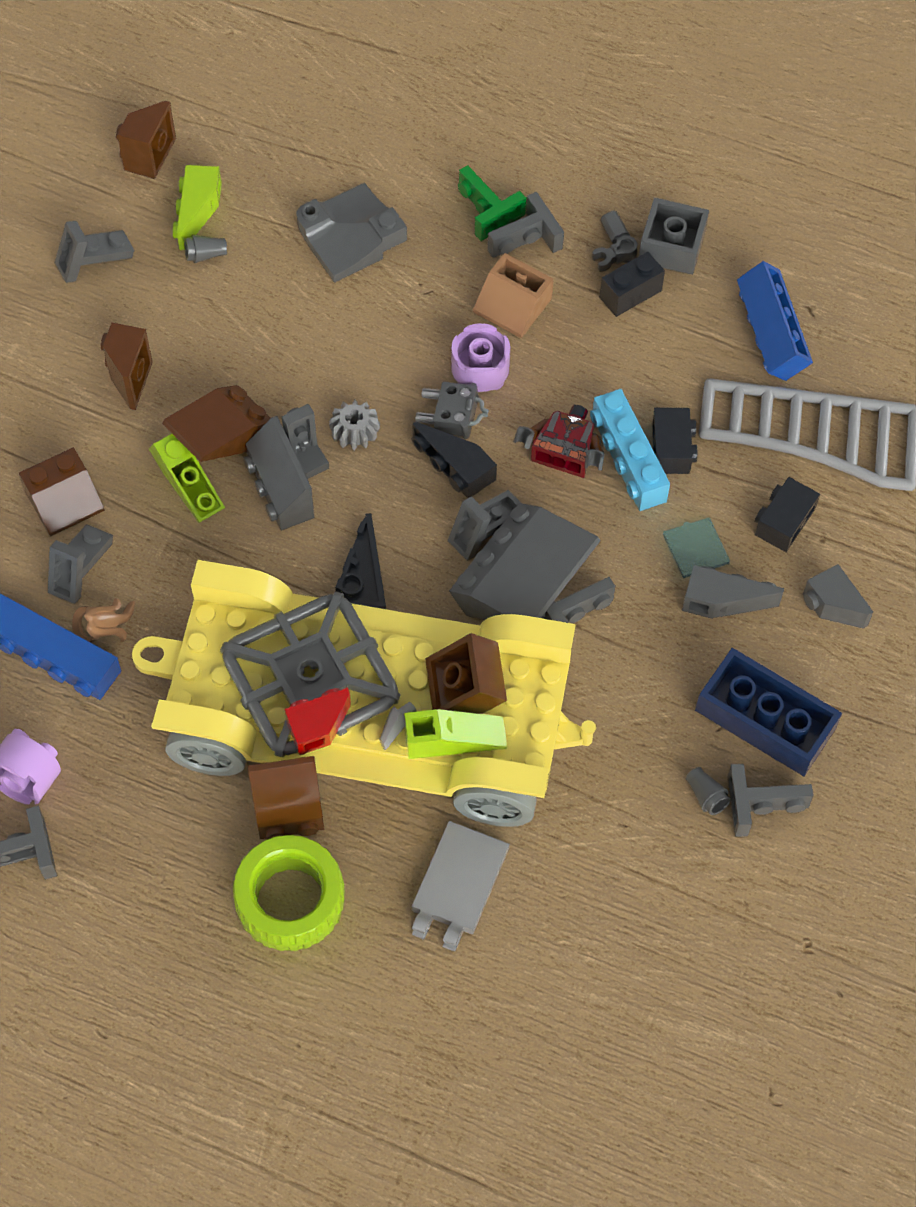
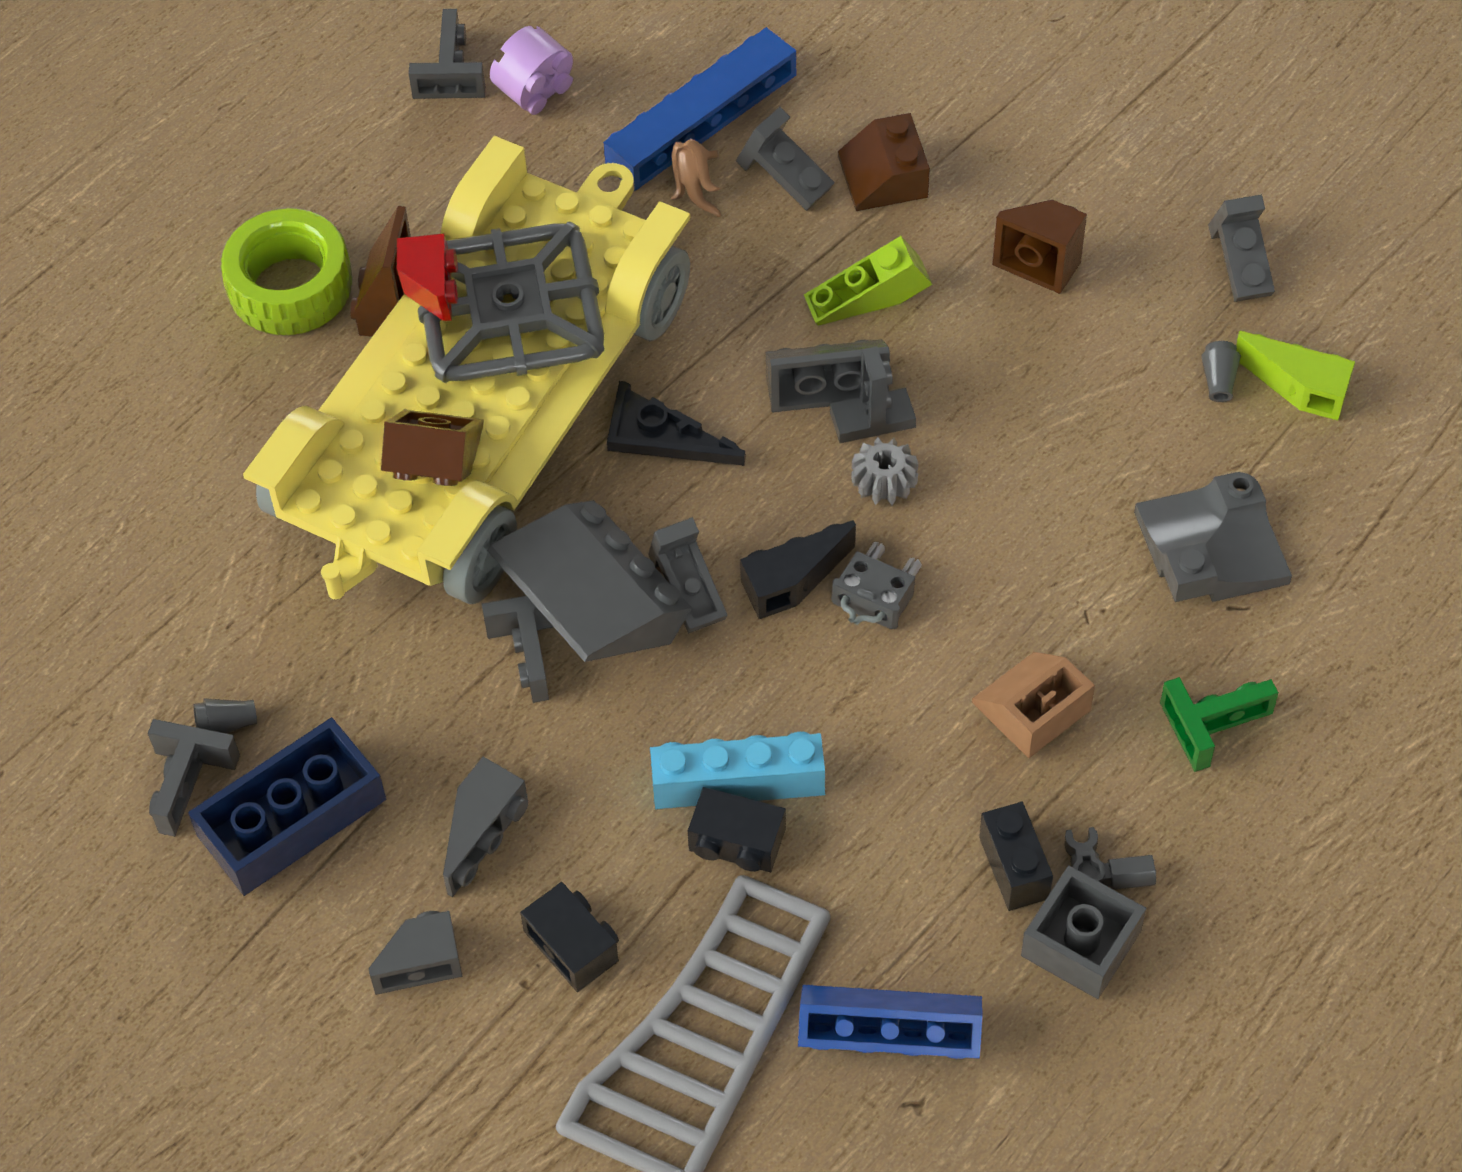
camera: 110 degrees right, 5 degrees down
(146, 139) = (1409, 328): reddish brown slope -> none
(217, 423) = (913, 310): reddish brown slope -> none
(394, 724) = (411, 369): light grey bar -> none
(452, 732) = (364, 407): lime slope -> none
(458, 883) = (220, 432): light grey tile -> none
(480, 357) = (939, 629): lavender brick -> none
(528, 230) = (1154, 771): dark grey bracket -> none
(564, 442) = (777, 695): torso -> none
(696, 545) = (570, 820): clear light blue piece -> none

